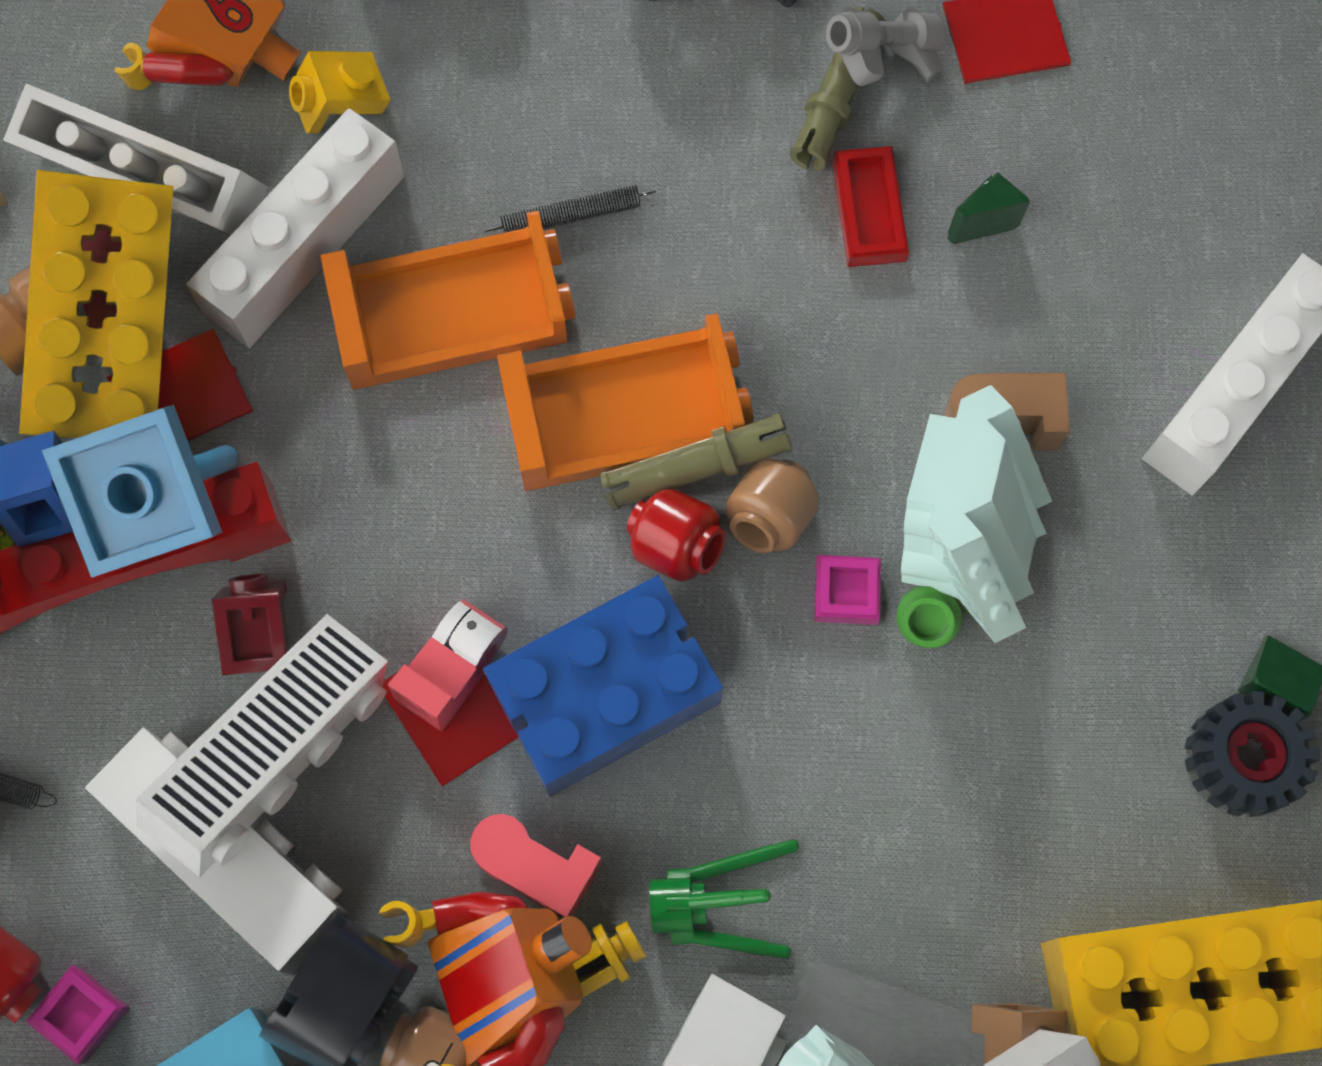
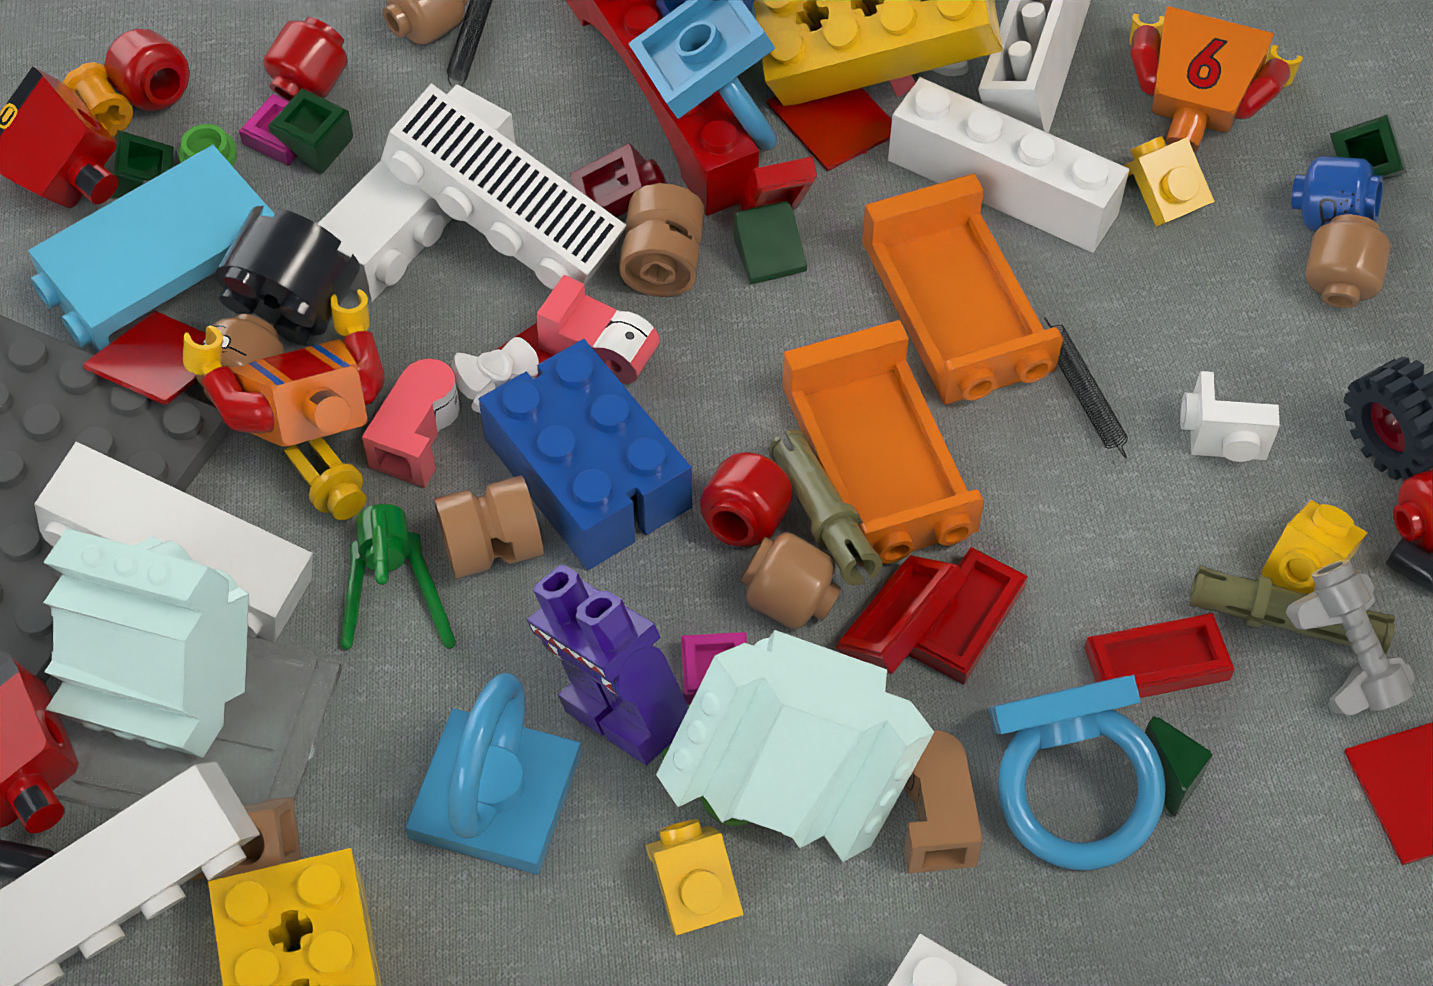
camera: 85 degrees right, 15 degrees down
(95, 972) = (313, 129): none -> dark green slope
(304, 450) = (779, 183): none -> red tile
(341, 582) = (662, 240): none -> medium nougat wheel
(352, 477) = (769, 242): none -> dark green slope
(472, 758) = (491, 369): none -> white piece
(637, 112) = (1226, 427): none -> white bracket
(682, 782) = (489, 527): none -> medium nougat wheel
(780, 51) = (1310, 542): none -> yellow bracket
(810, 357) = (972, 617): none -> red tile
(814, 411) = (902, 612): none -> red tile
(877, 676) = (615, 671): none -> dark purple hips
(953, 287) = (1065, 719): none -> dark azure tile
(966, 809) = (495, 783): none -> dark azure tile
(1065, 630) = (694, 876): none -> yellow bracket

